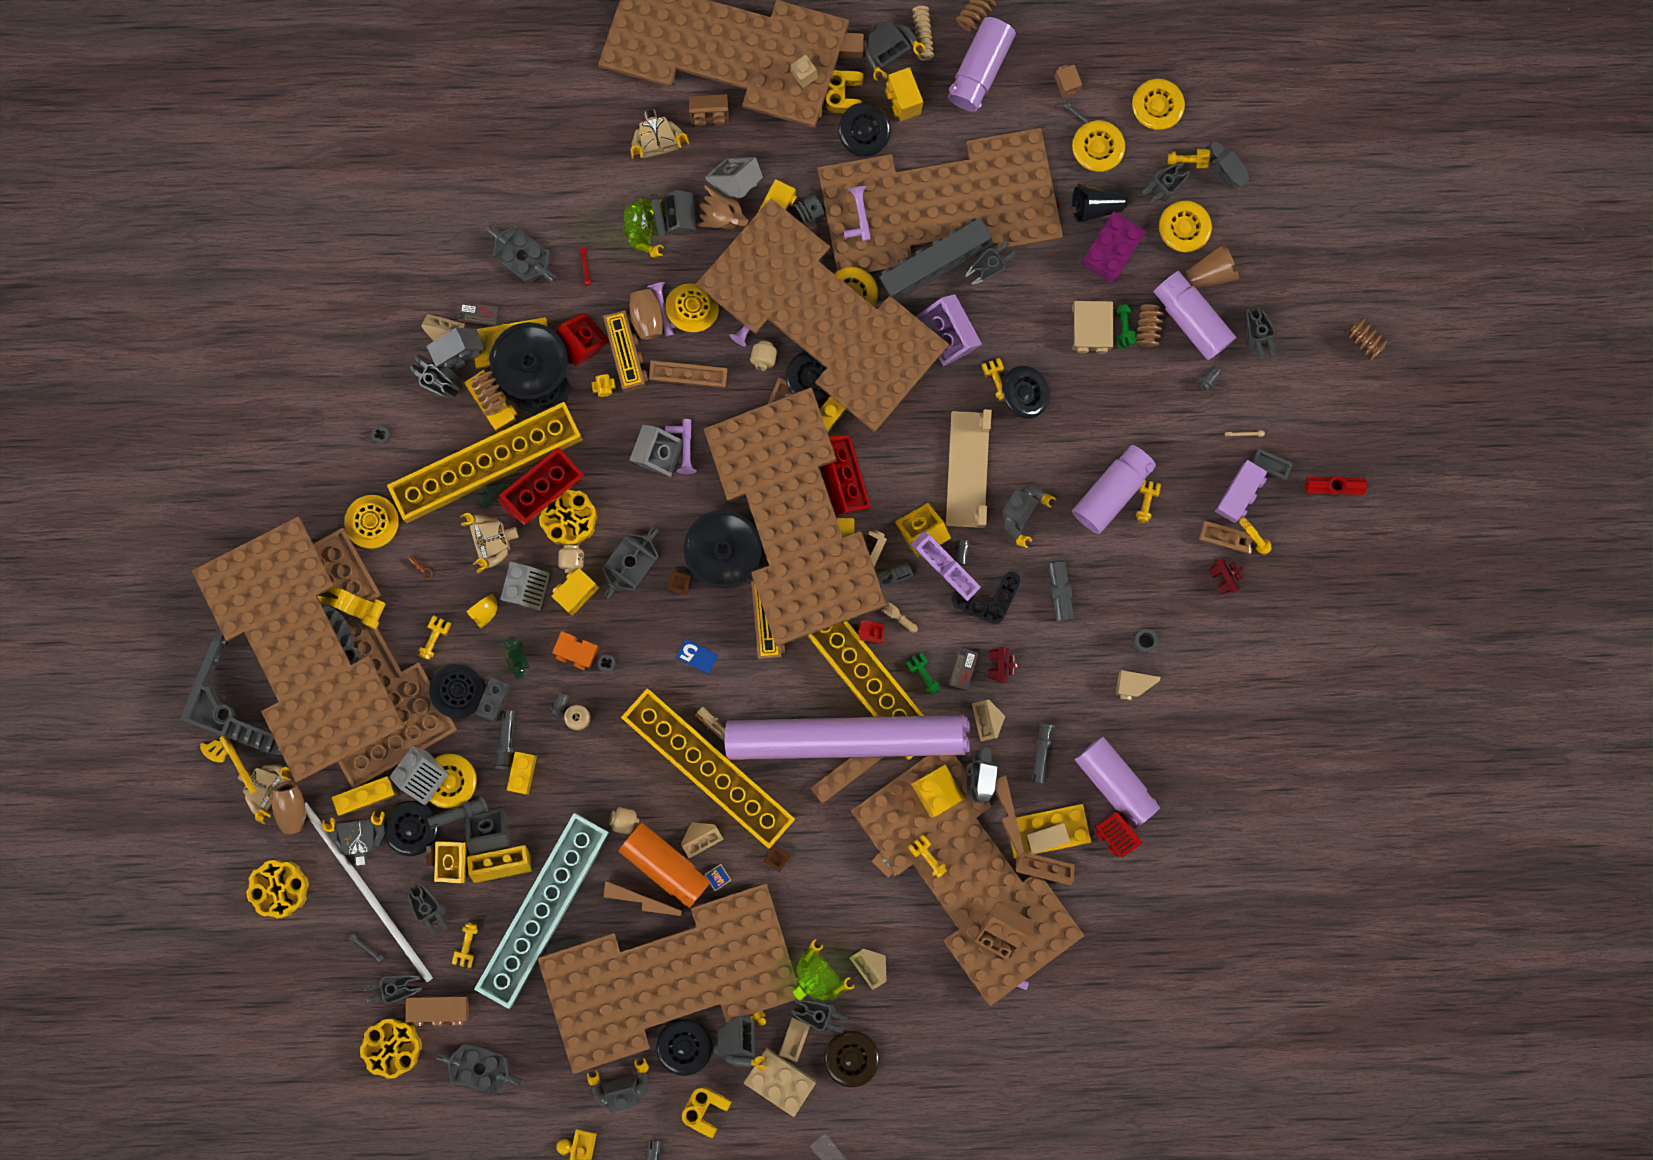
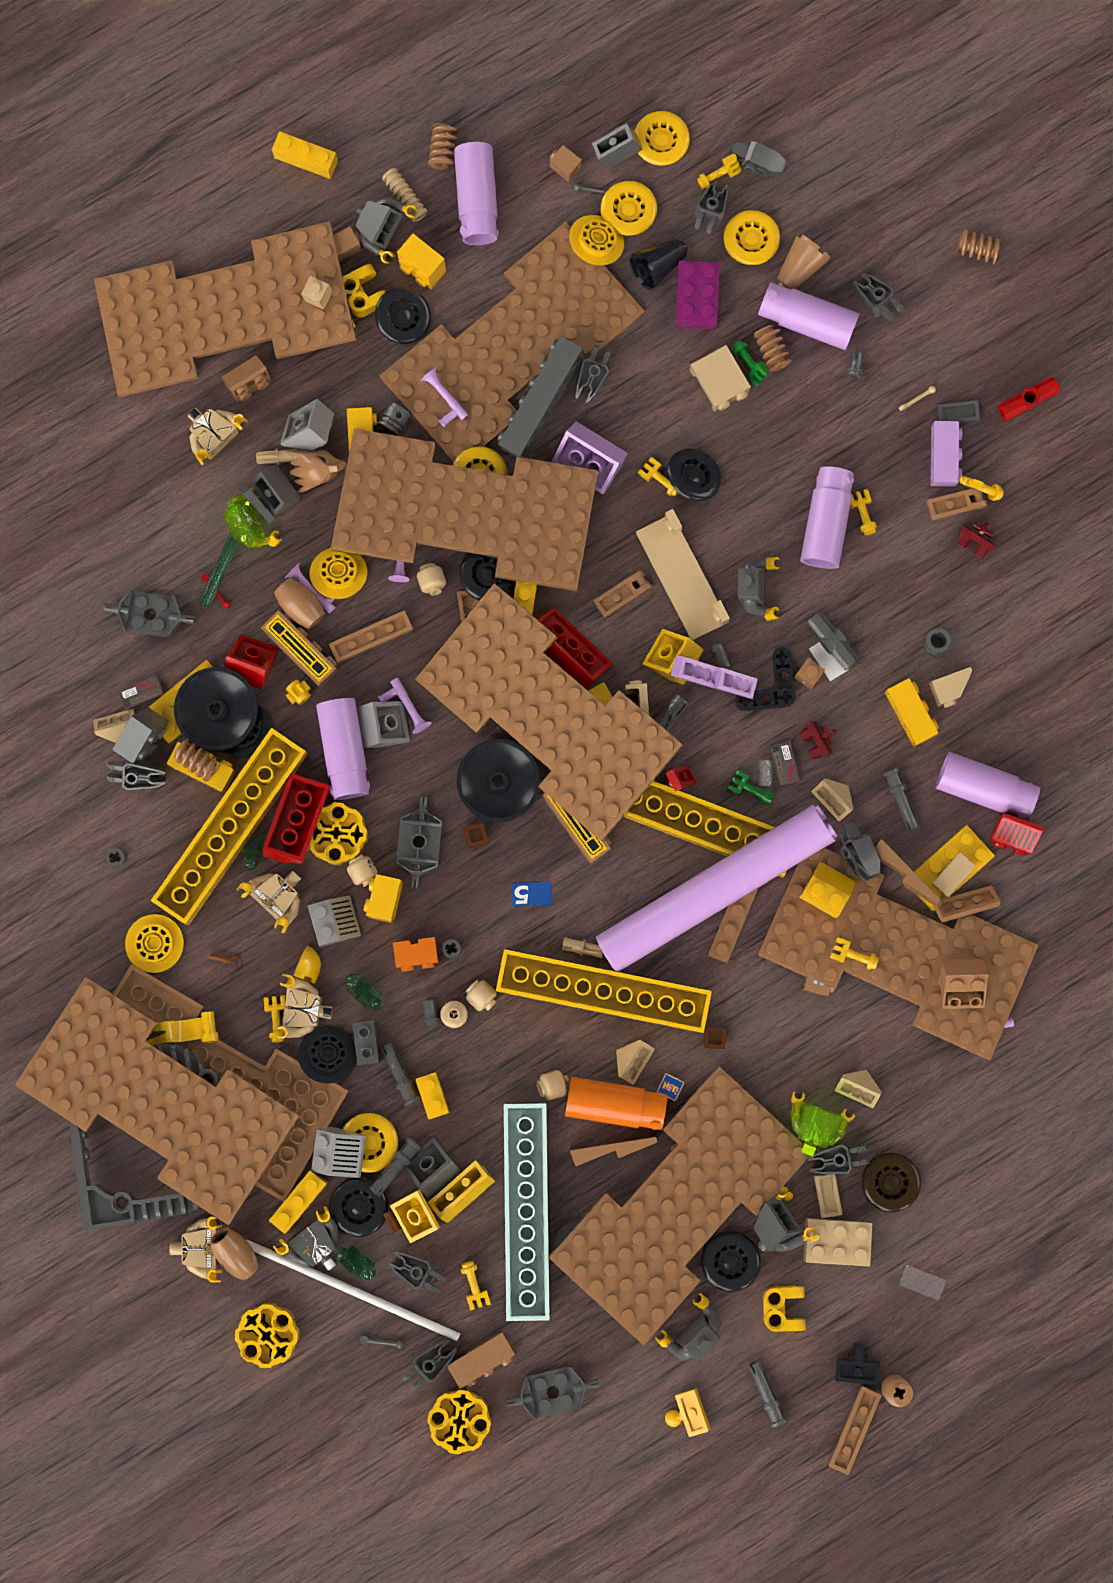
camera: 20 degrees left, 0 degrees up
(229, 749) = (138, 1228): yellow piece -> none
(382, 872) = (356, 1262): none -> clear green piece
(457, 642) = (301, 1009): none -> tan torso
(596, 252) = (219, 571): none -> clear green axle
(608, 714) = (481, 995): none -> tan head
(612, 451) = (343, 748): none -> lavender piece
(694, 184) = (274, 457): none -> tan axle
(894, 613) = (691, 749): tan piece -> none
(911, 456) = (622, 594): none -> medium nougat plate
(943, 667) = (765, 772): none -> clear pin
(1025, 607) = (809, 674): none -> medium nougat brick
(1046, 606) = (827, 661): none -> white sticker
(1060, 154) = (598, 236): none -> yellow wheel
(1091, 686) = (912, 712): none -> yellow brick
(1117, 90) = (617, 146): none -> dark grey brick

